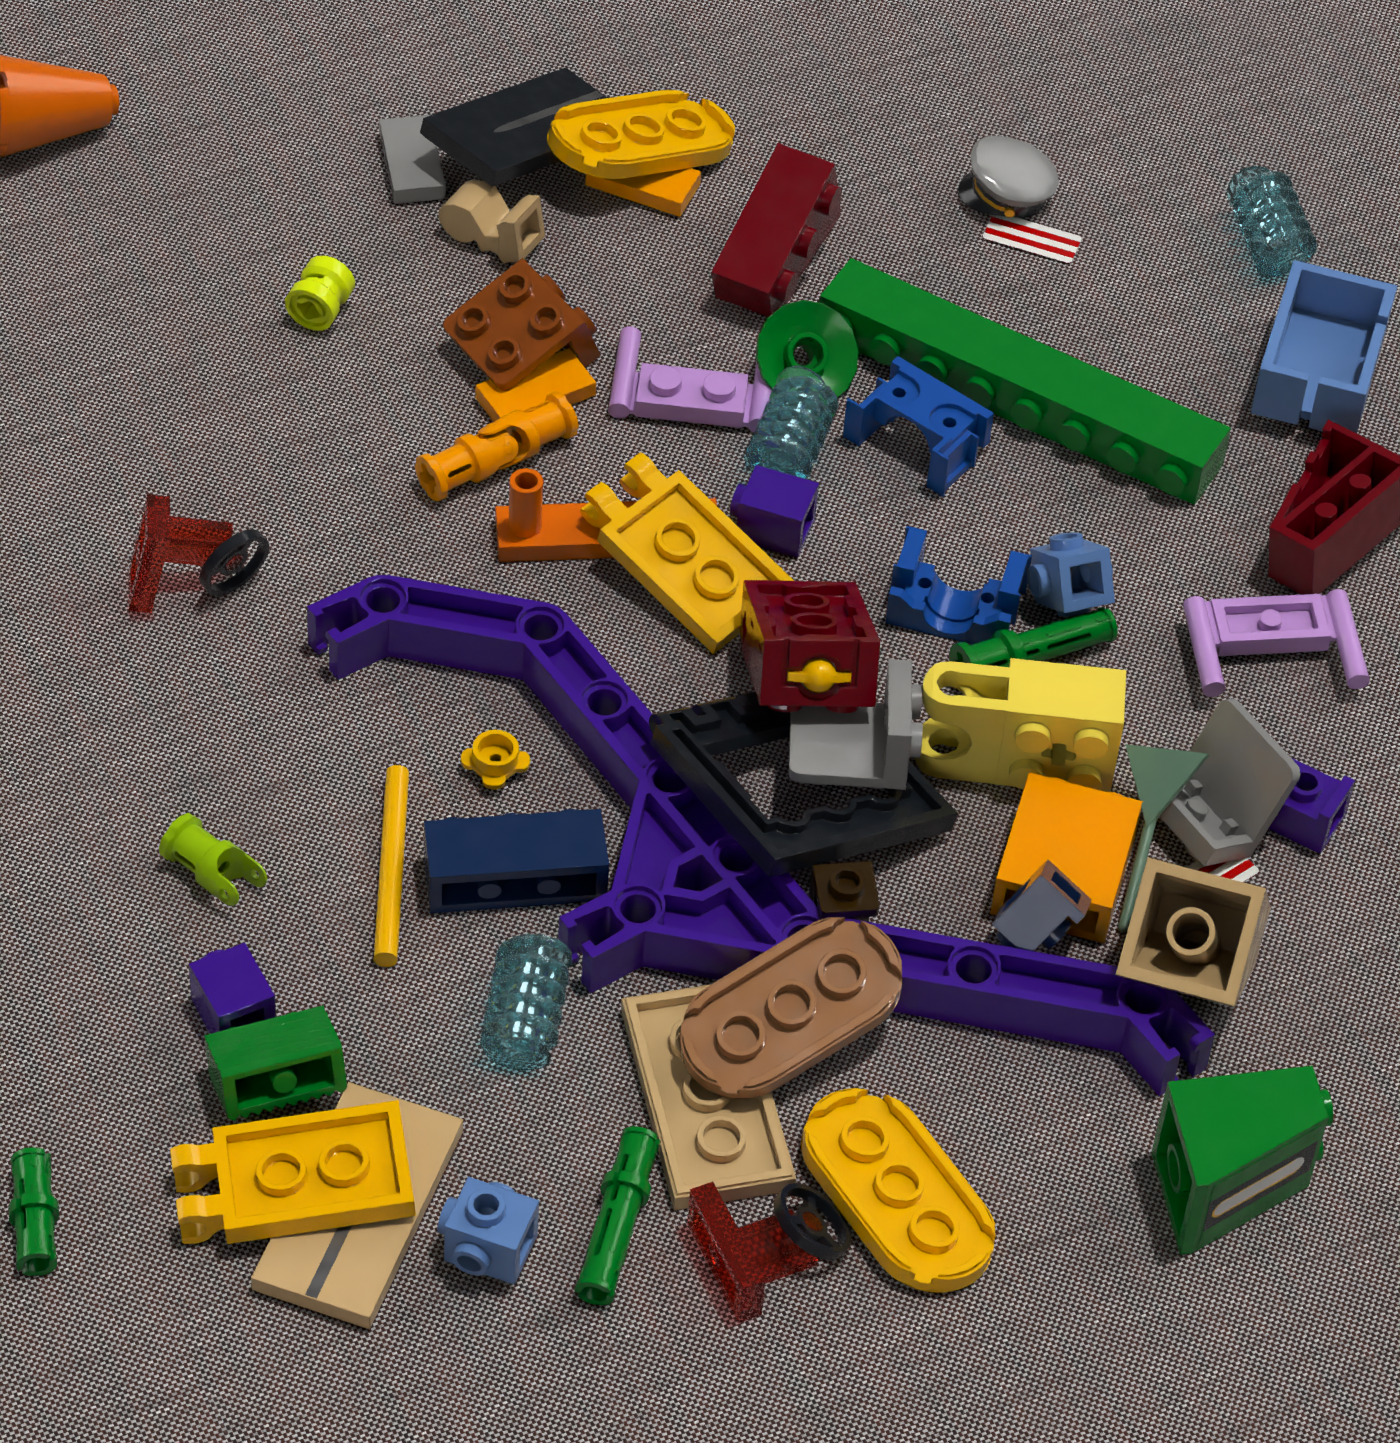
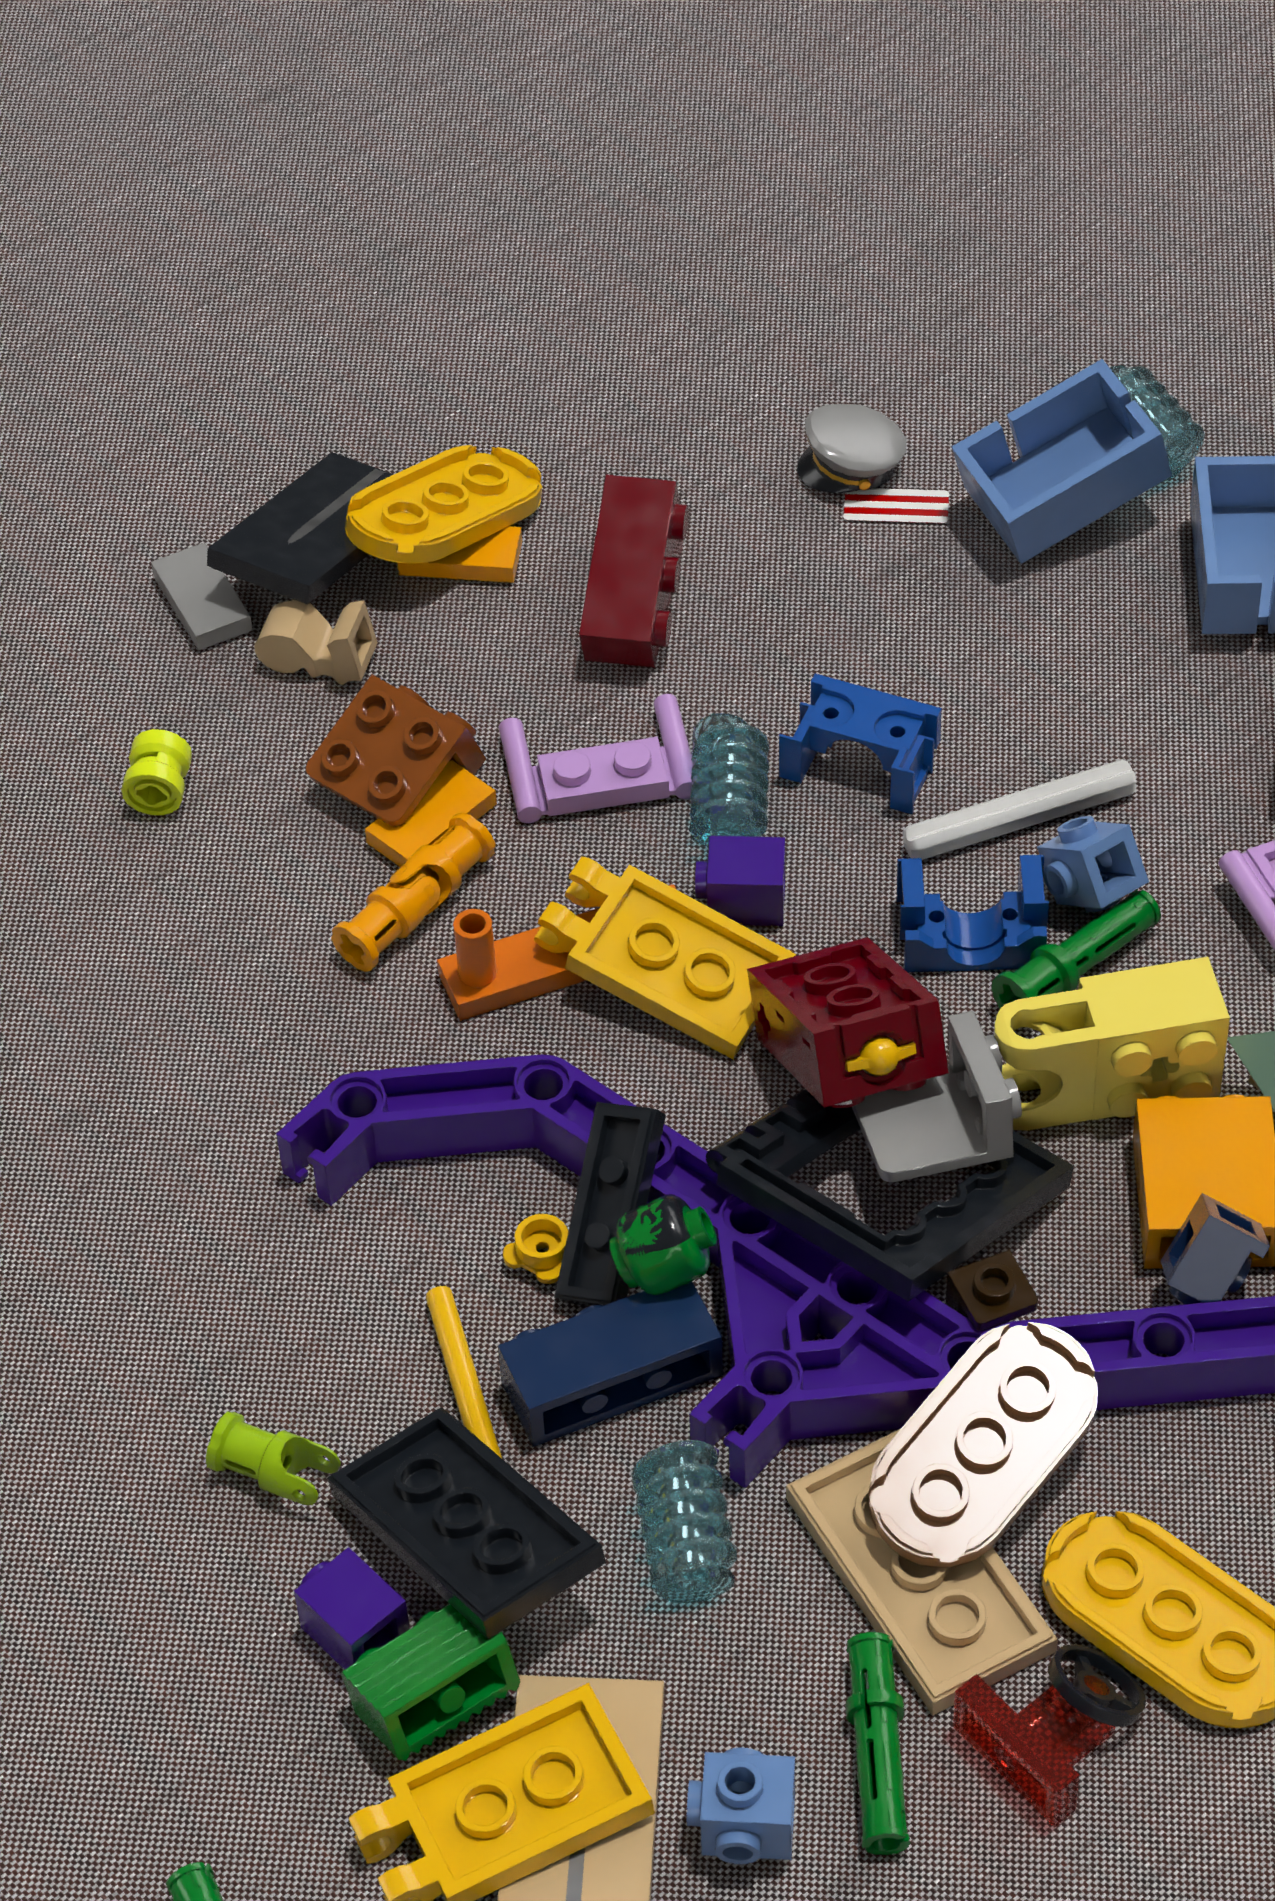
camera: 10 degrees left, 0 degrees up
(188, 542) = (102, 1097): clear red piece -> none
(347, 950) = (466, 1522): none -> black tile
(559, 736) = (611, 1183): none -> black tile
(585, 778) = (663, 1245): none -> green head
(819, 332) = (722, 673): green dish -> none
(1031, 382) = (954, 663): green brick -> none
(1033, 516) = (1019, 810): none -> white axle
(1198, 238) = (1071, 462): none -> medium blue piece

